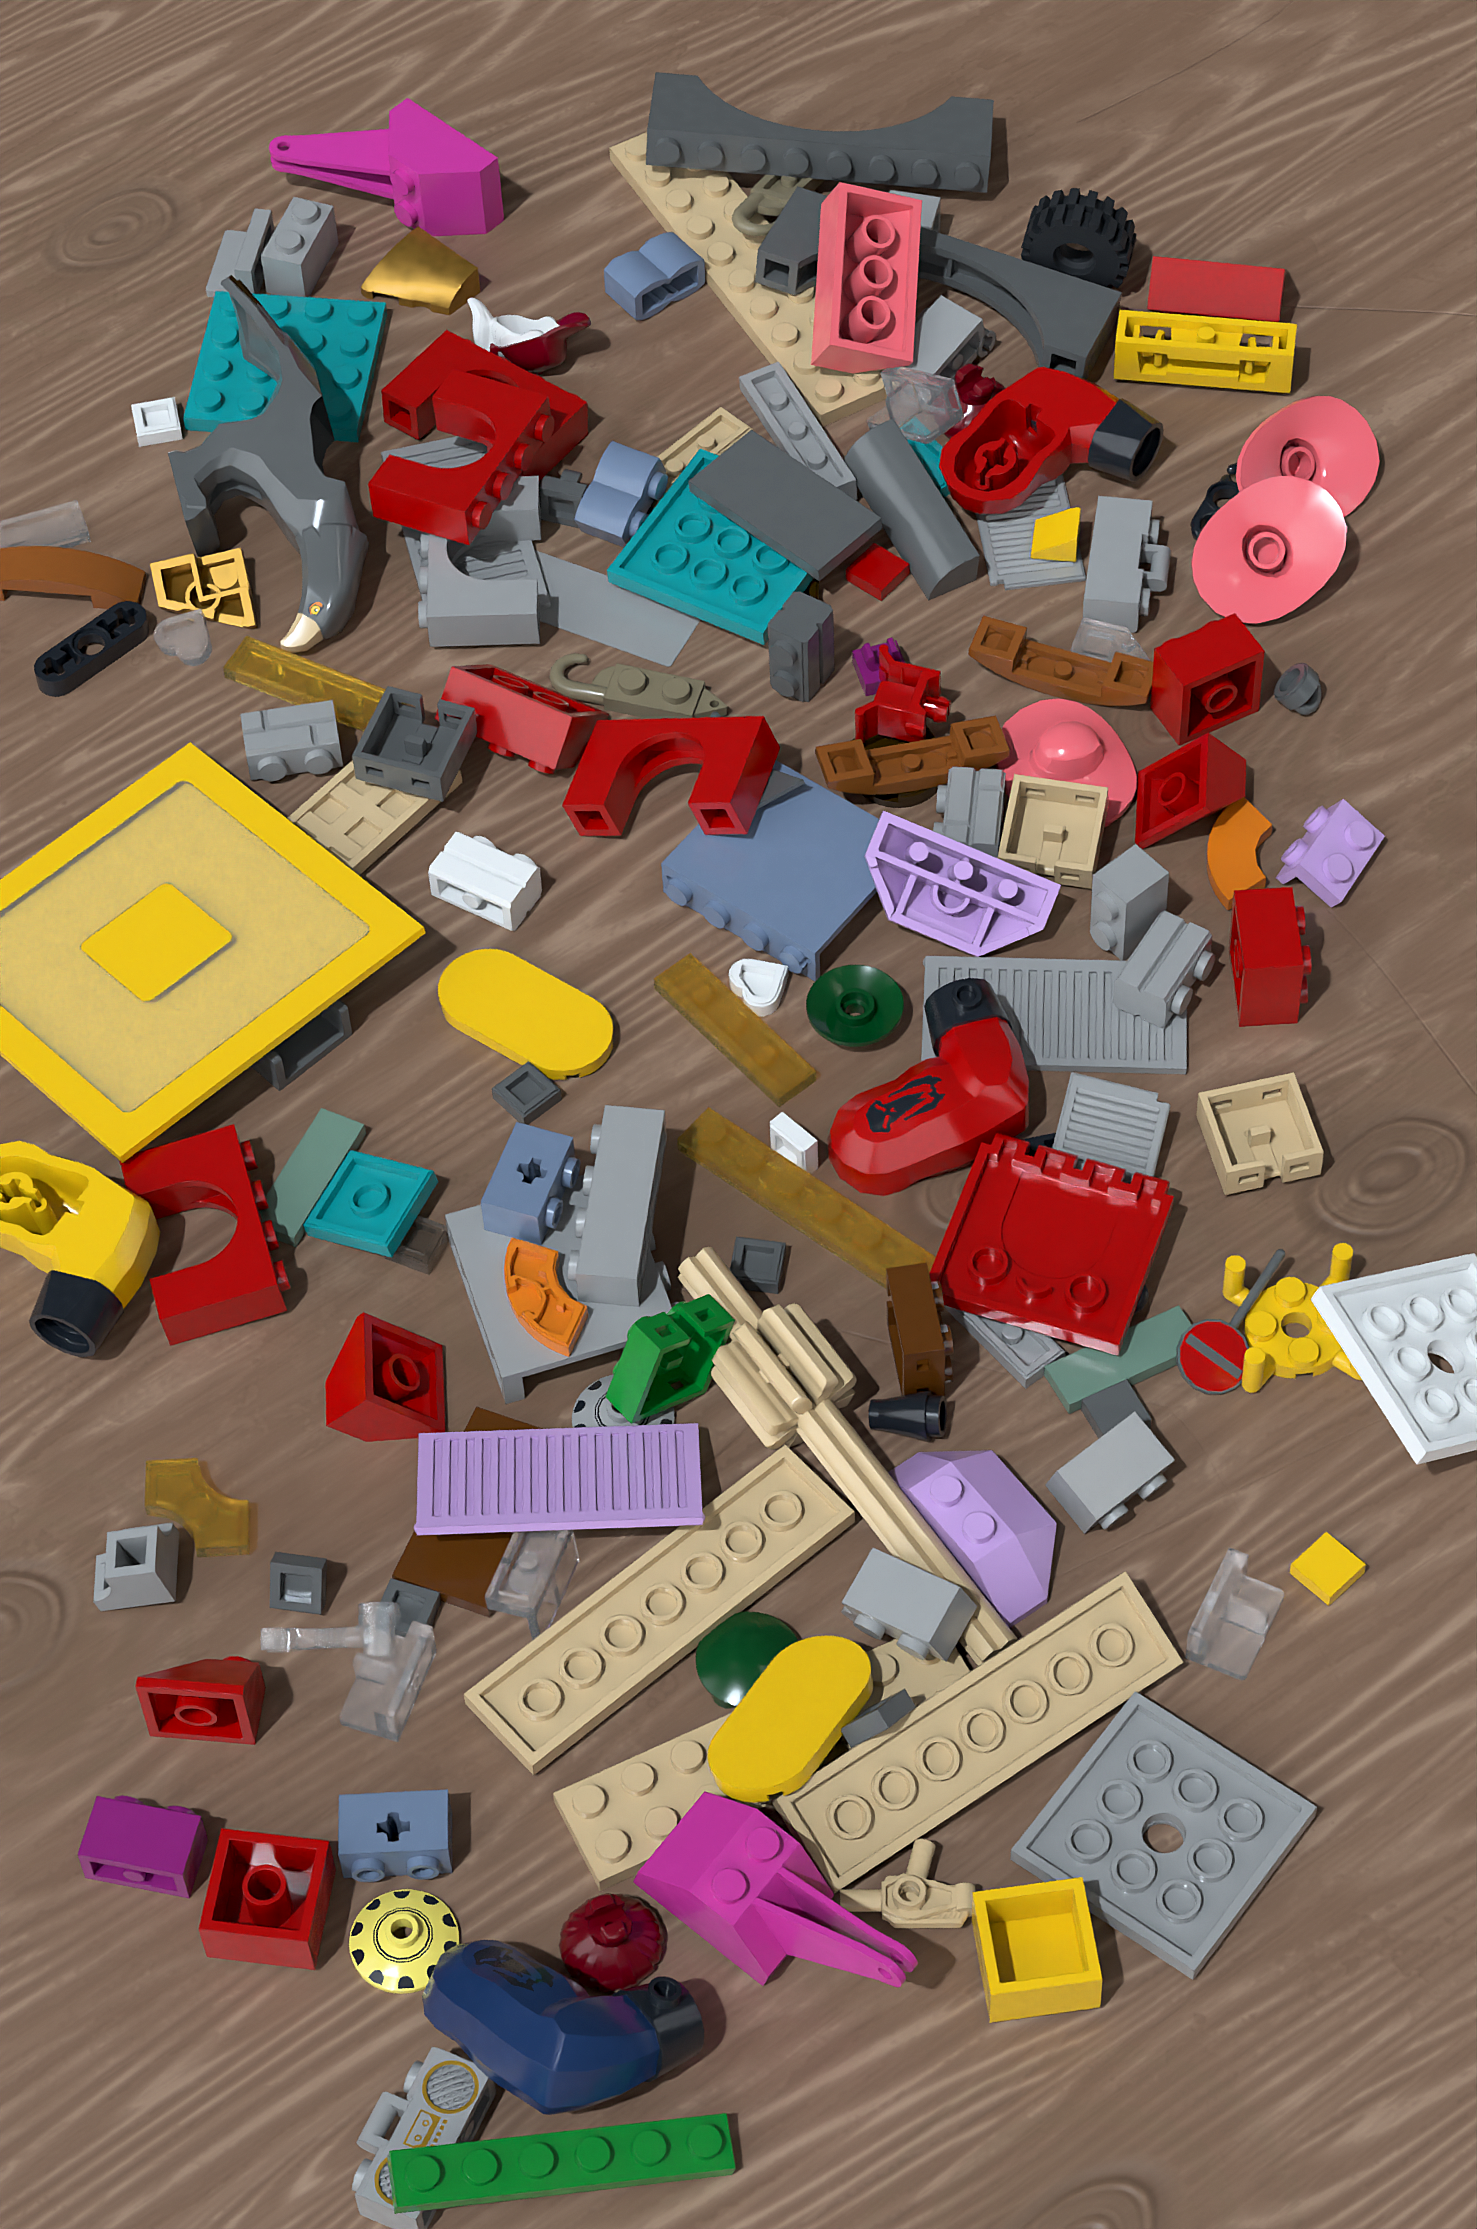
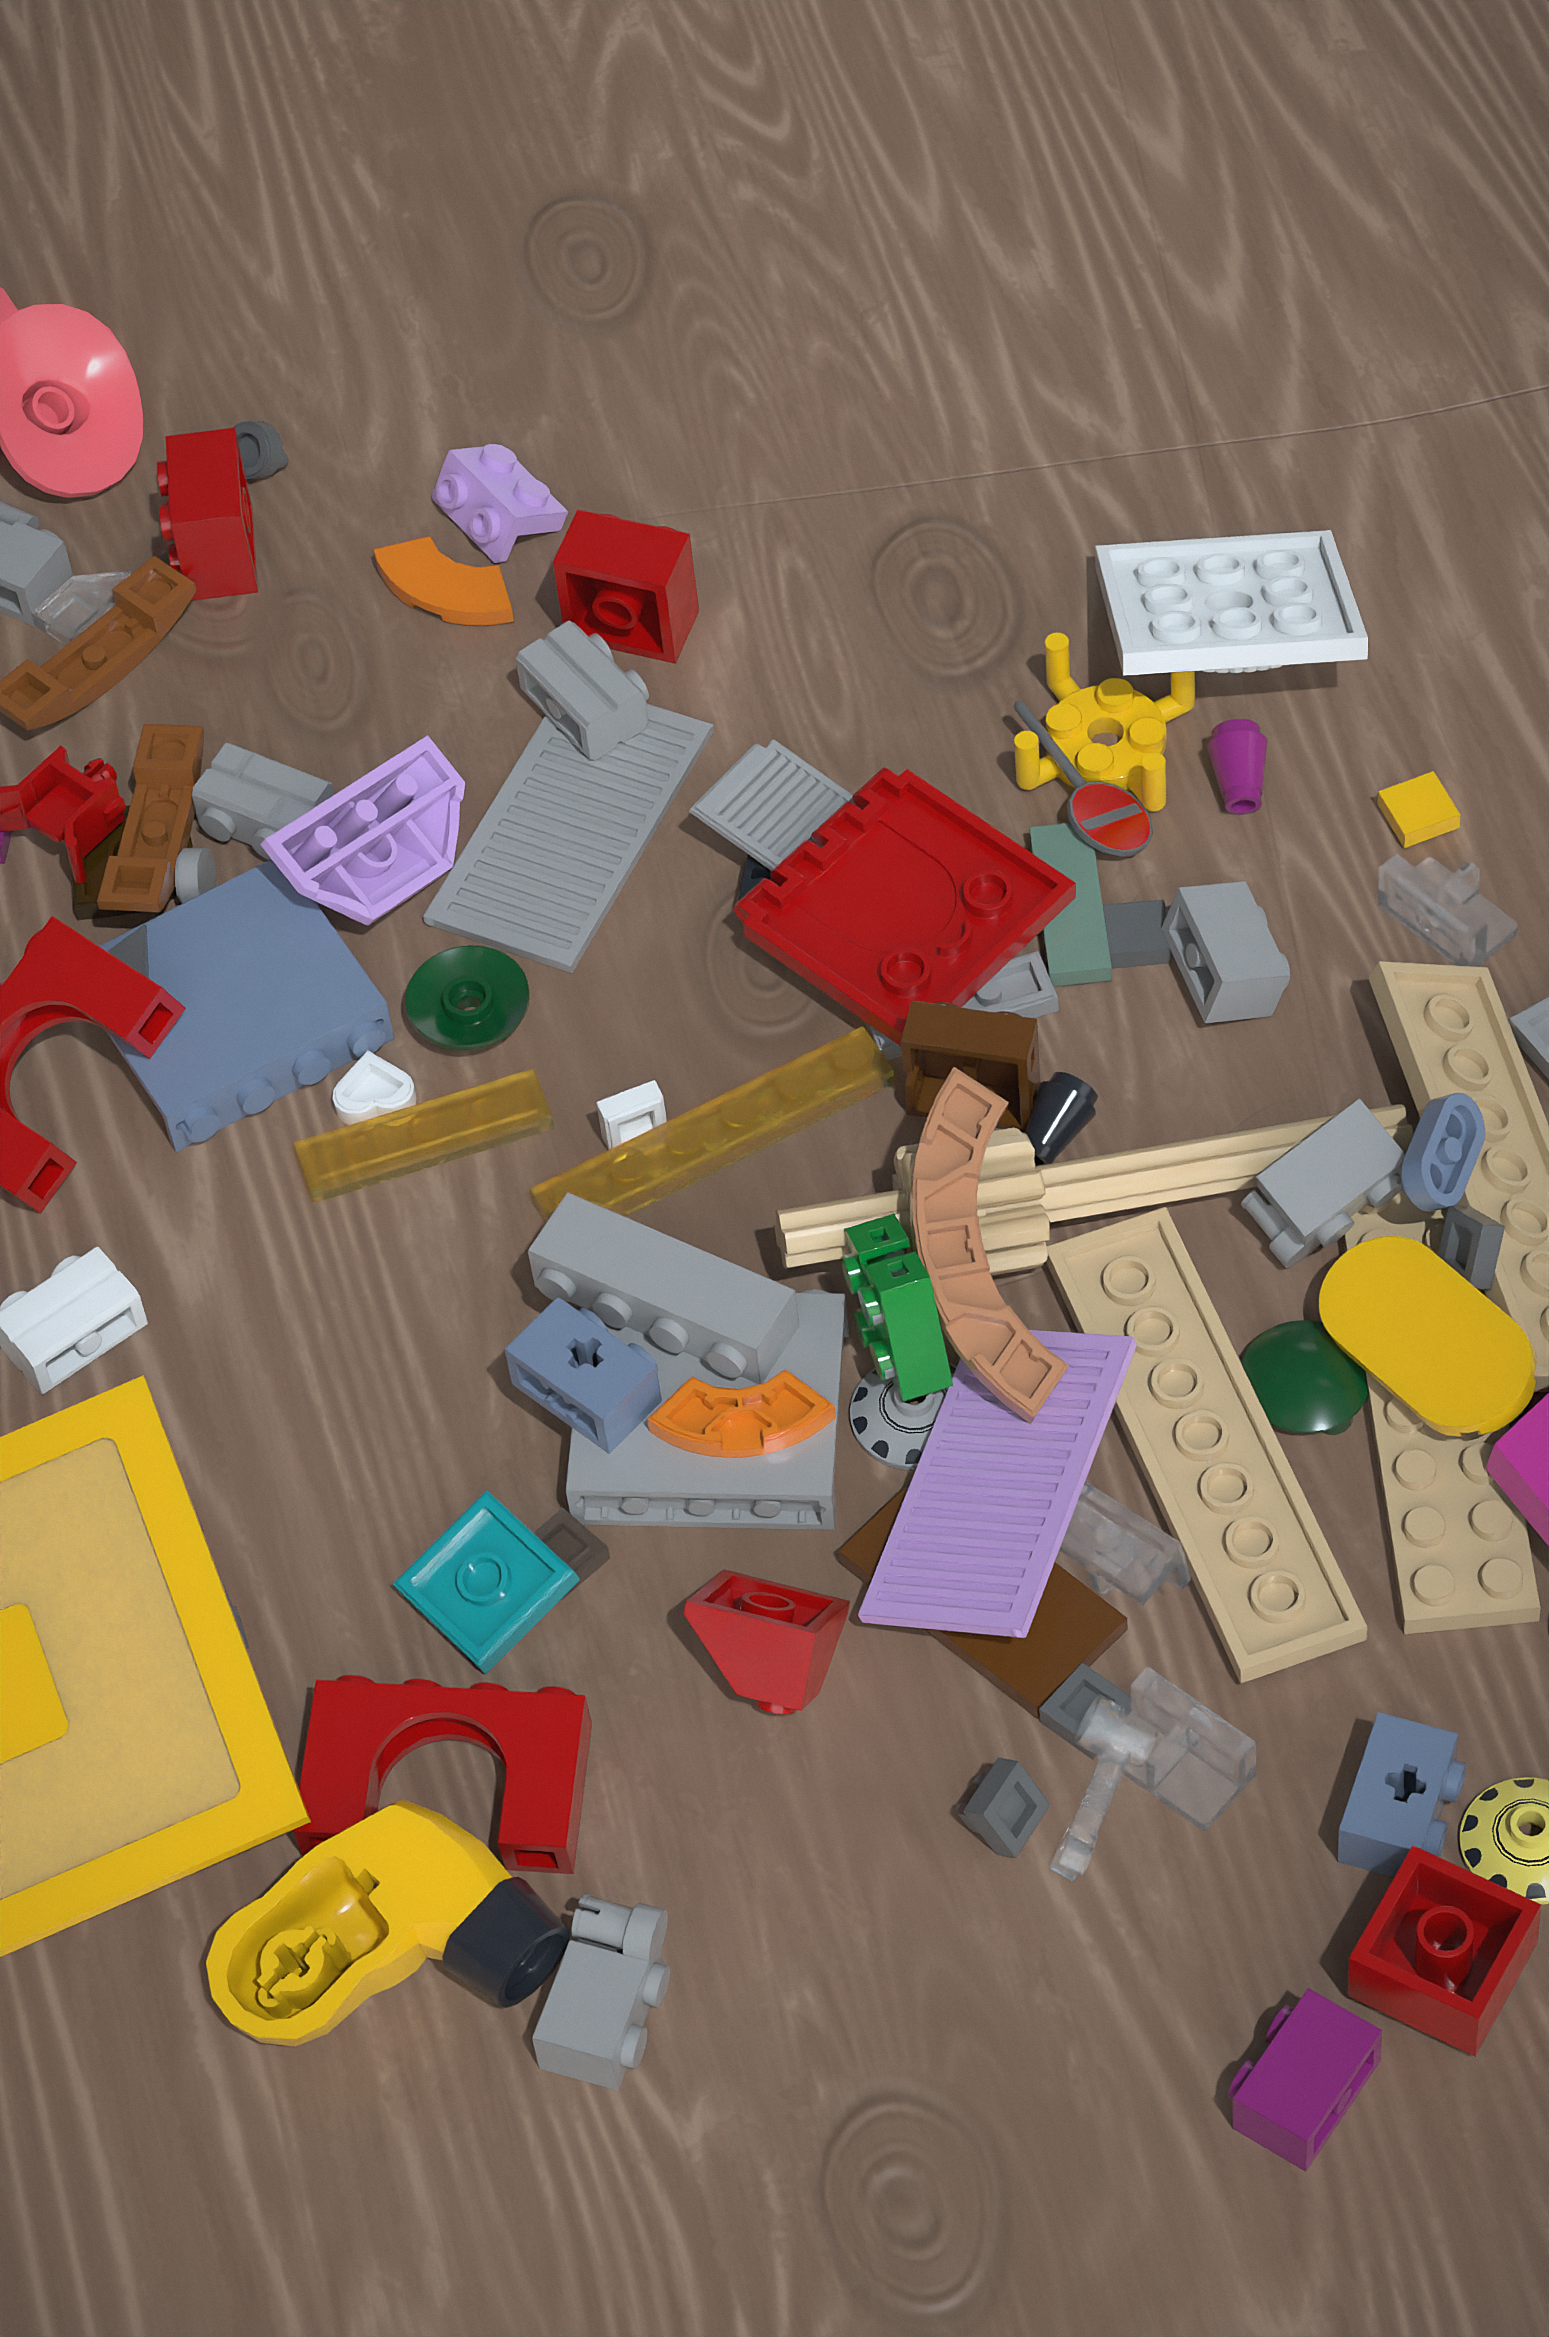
camera: 65 degrees left, 0 degrees up
(66, 1388) = (604, 1993): none -> light grey hinge
(137, 1567) = (907, 1980): light grey brick -> none
(204, 1700) = (1140, 1937): red slope -> none
(214, 1521) = (862, 1888): clear yellow tile -> none
(310, 1173) = (393, 1631): sand green tile -> none
(525, 1013) = (284, 1342): yellow tile -> none
(526, 1093) = (403, 1375): dark grey tile -> none
(704, 1365) = (952, 1250): none -> nougat tile
(758, 1264) = (755, 1210): dark grey tile -> none
(891, 798) = (194, 873): none -> light grey tile
(942, 1106) = (666, 952): red piece -> none
(942, 1667) = (1443, 1152): none -> sand blue plate
(986, 1525) = (1224, 1087): lavender wedge -> none
(1055, 828) = (333, 721): tan piece -> none
(1070, 745) = (242, 692): coral hat -> none
(1127, 901) = (483, 684): light grey brick -> none
(1187, 788) = (345, 595): red slope -> none
(1259, 1133) = (846, 678): tan piece -> none
(1306, 1426) = (1239, 764): none -> magenta cone

